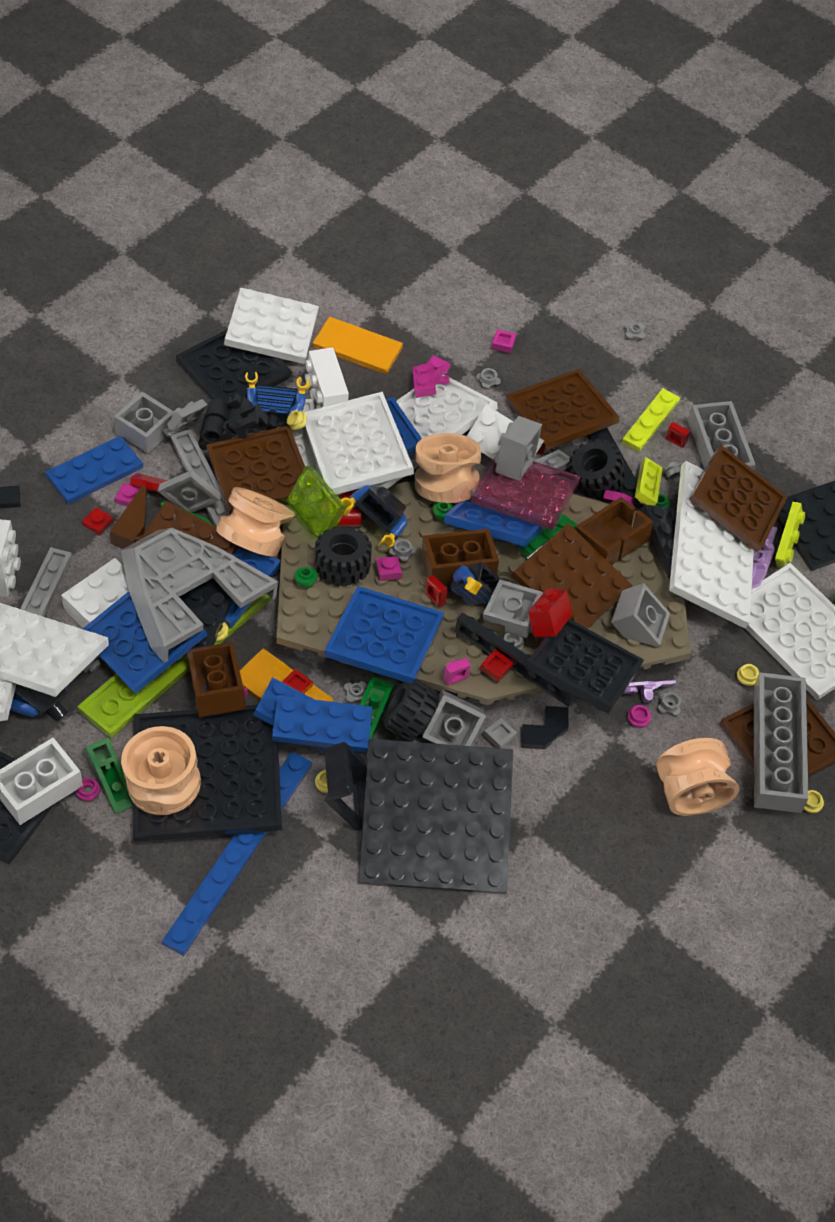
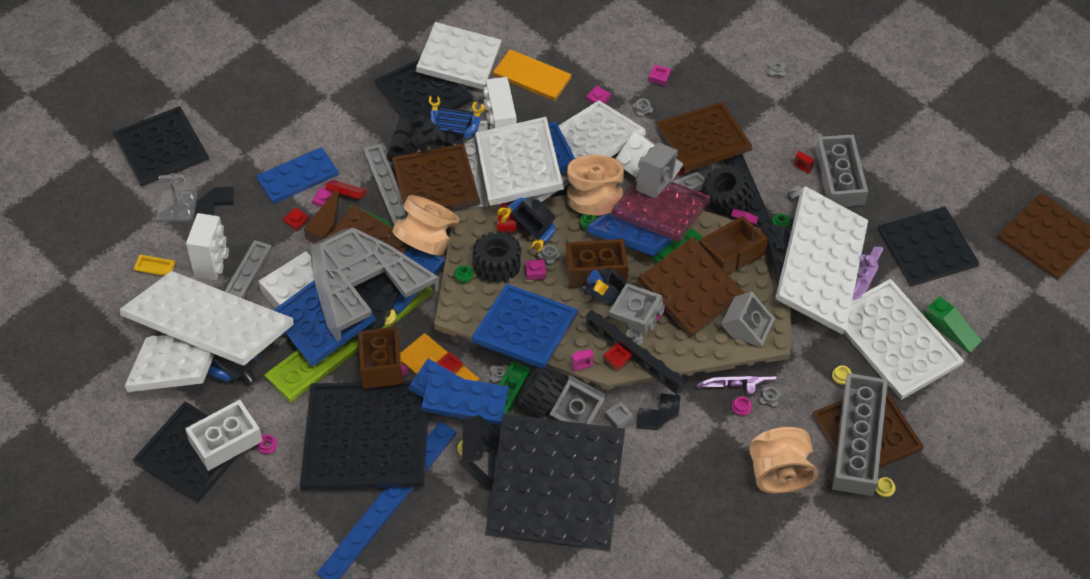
camera: 10 degrees right, 0 degrees up
(109, 774) = (285, 433): green slope -> none
(143, 422) = (342, 136): light grey brick -> none
(161, 770) = (326, 431): light nougat piece -> none
(184, 417) = (376, 133): light grey plate -> none
(189, 491) = (373, 197): light grey plate -> none
(297, 420) = (470, 138): light yellow plate -> none
(315, 502) = (478, 210): clear neon green plate -> none
(426, 380) = (587, 105): dark pink plate -> none
(436, 591) = (573, 291): red tile -> none
(550, 613) = (666, 313): red brick -> none
(585, 665) = (692, 358): black plate -> none
(648, 482) = (772, 203): neon yellow plate -> none
(650, 420) = (782, 148): neon yellow plate -> none
(738, 498) = (848, 220): reddish brown plate -> none
(790, 535) = (892, 254): neon yellow plate -> none

